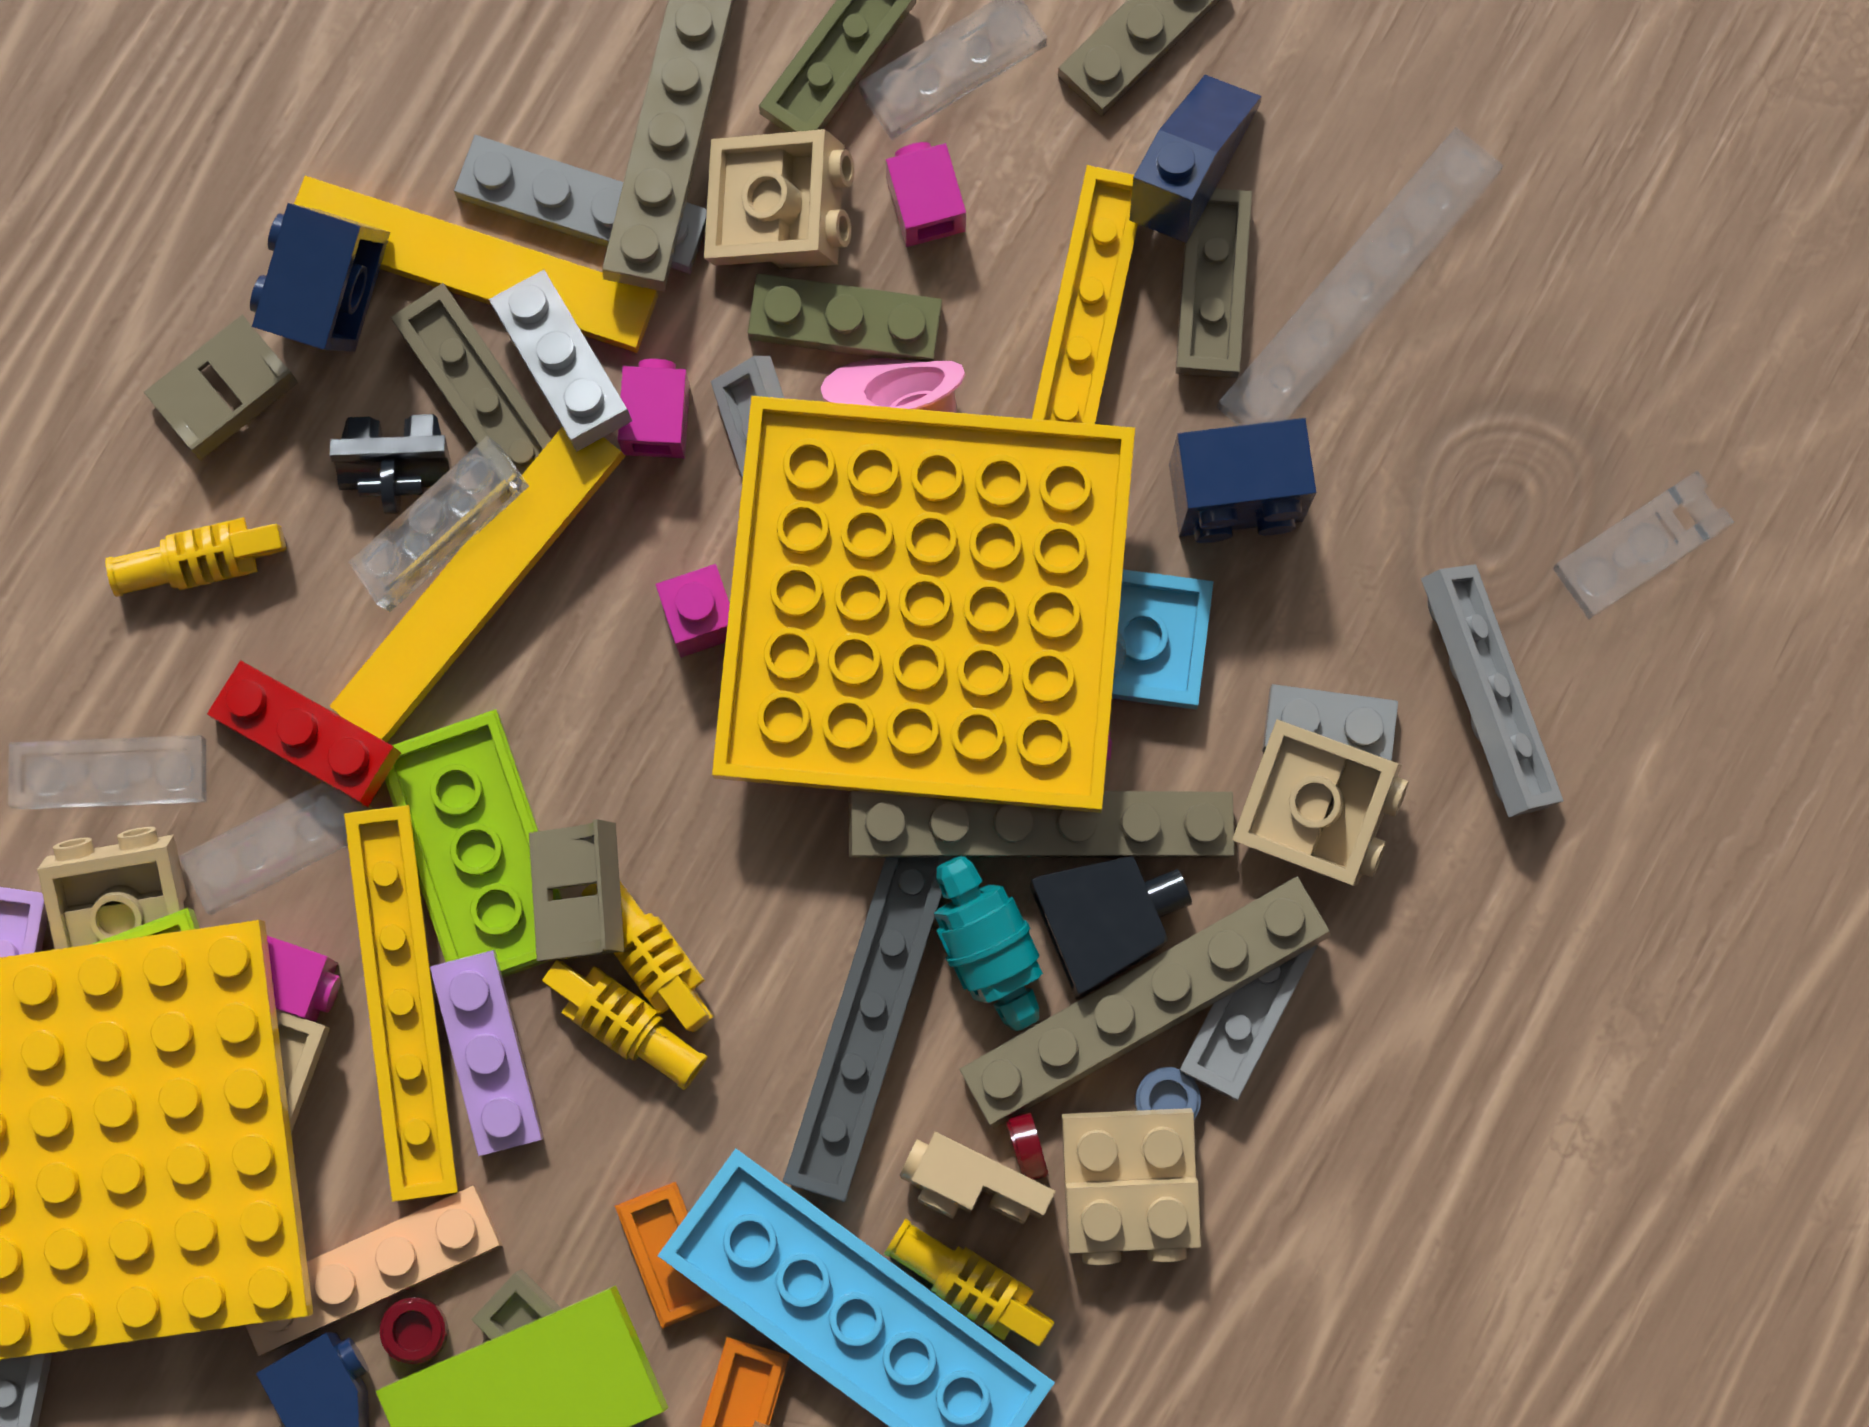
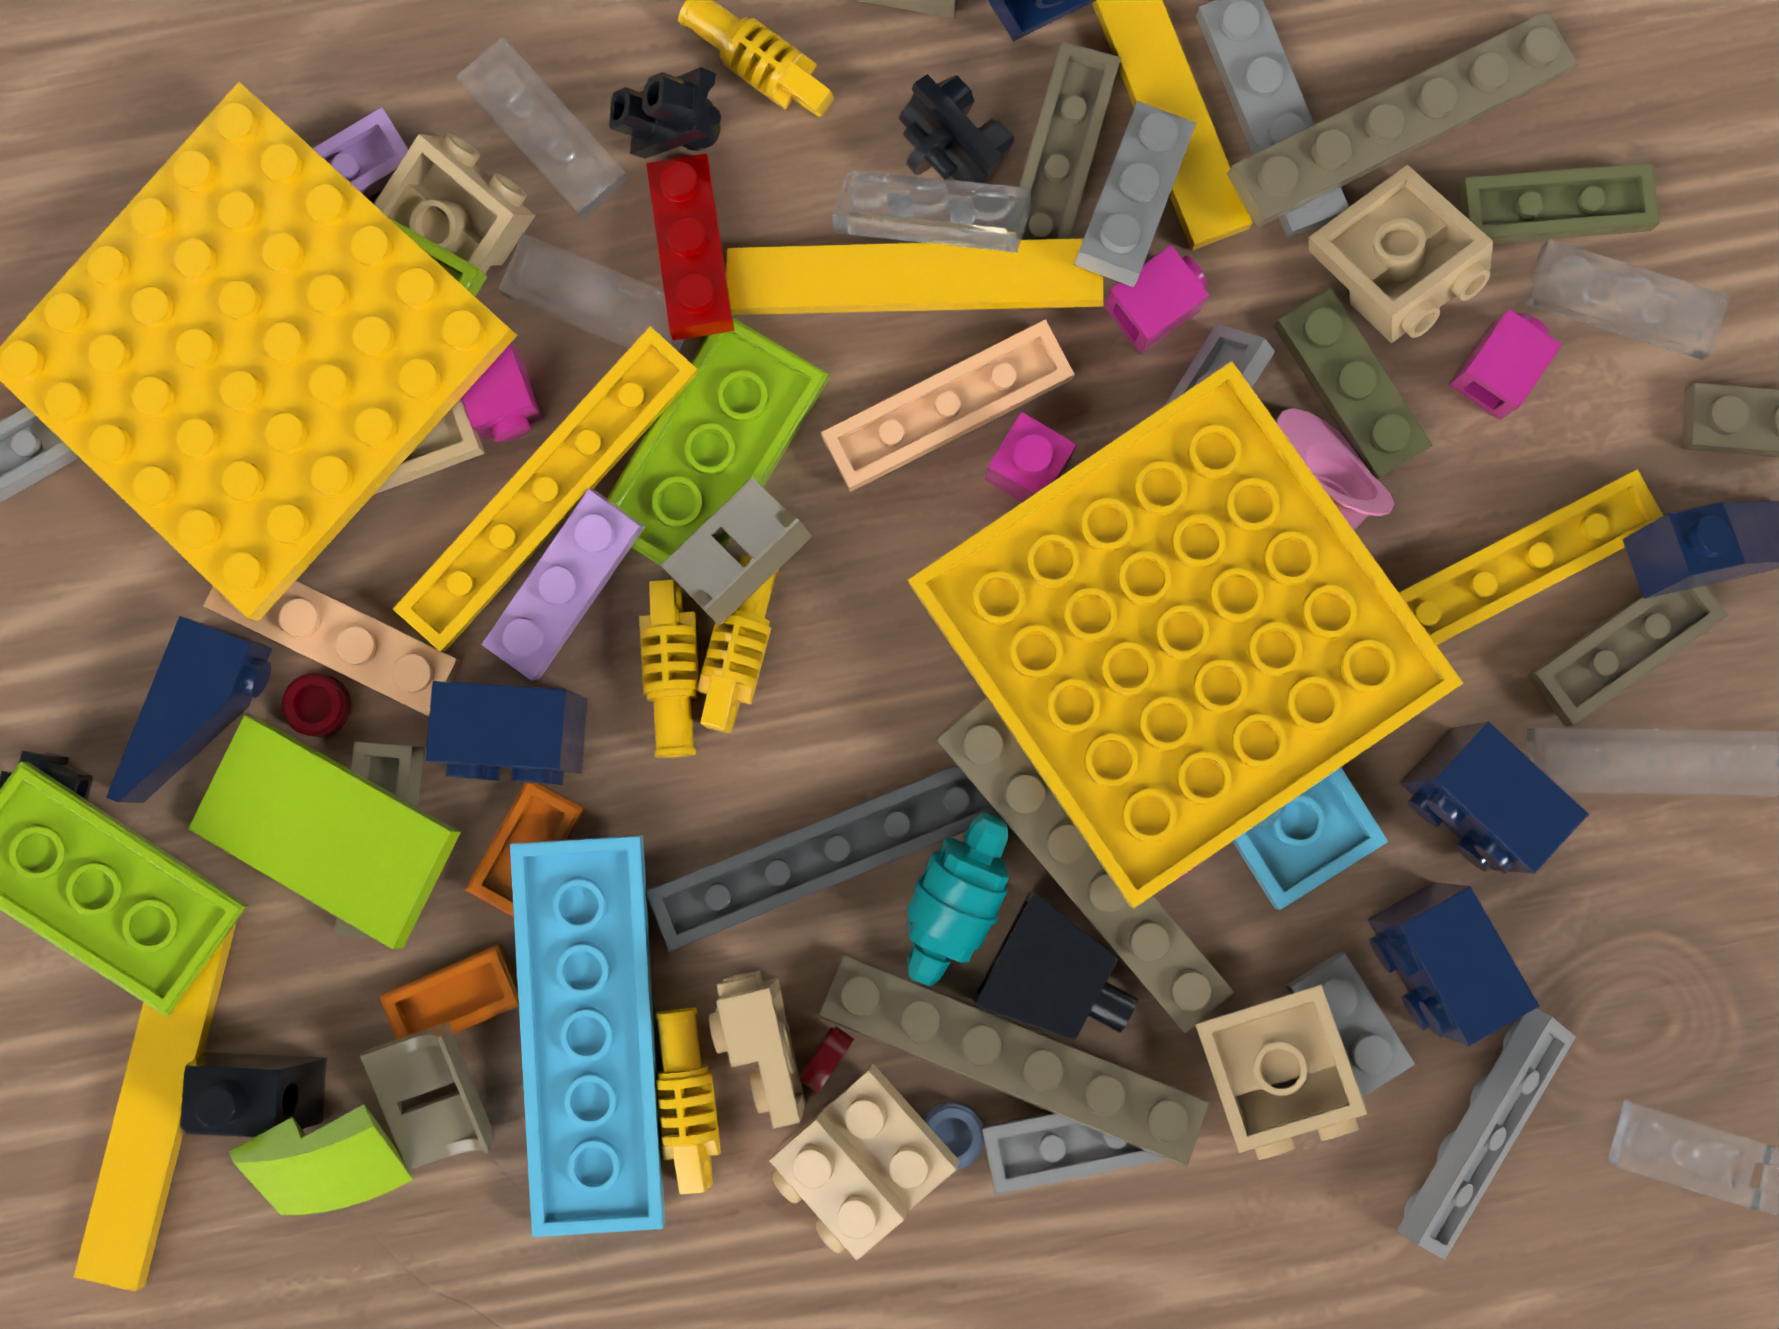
camera: 55 degrees right, 5 degrees up
(185, 664) = (667, 113): none -> black hips
(567, 1184) = (506, 727): none -> dark blue brick
(599, 638) = (947, 405): none -> light nougat plate
(1338, 611) = (1451, 963): none -> dark blue brick

